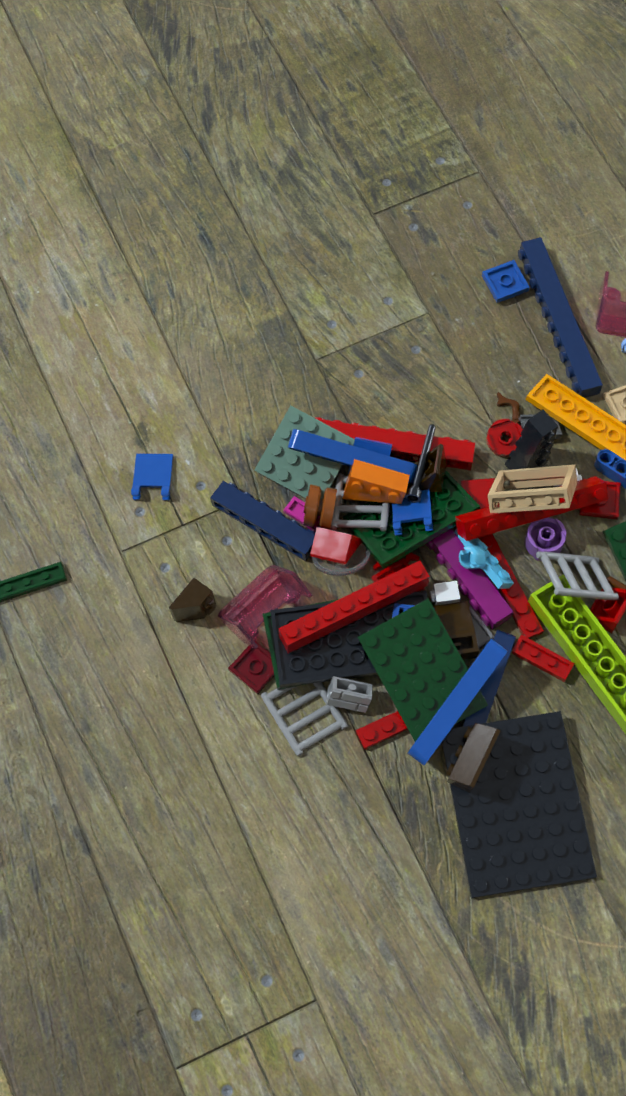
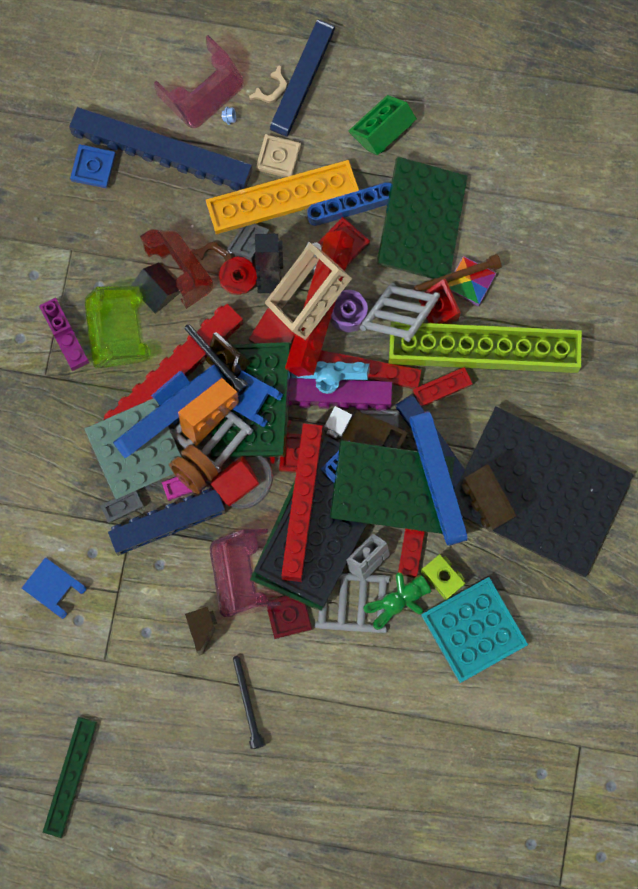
camera: 60 degrees left, 10 degrees up
(132, 711) = (256, 740): none -> black piece
(252, 480) = (121, 507): none -> dark grey plate
(327, 744) = (395, 602): none -> green animal
(352, 830) = (474, 630): none -> teal plate
(358, 348) = (64, 334): none -> magenta slope
(379, 758) = (445, 588): none -> lime brick
(393, 379) = (115, 326): none -> clear neon green windscreen
(448, 387) = (156, 286): none -> black slope
(474, 405) = (194, 281): none -> clear red windscreen

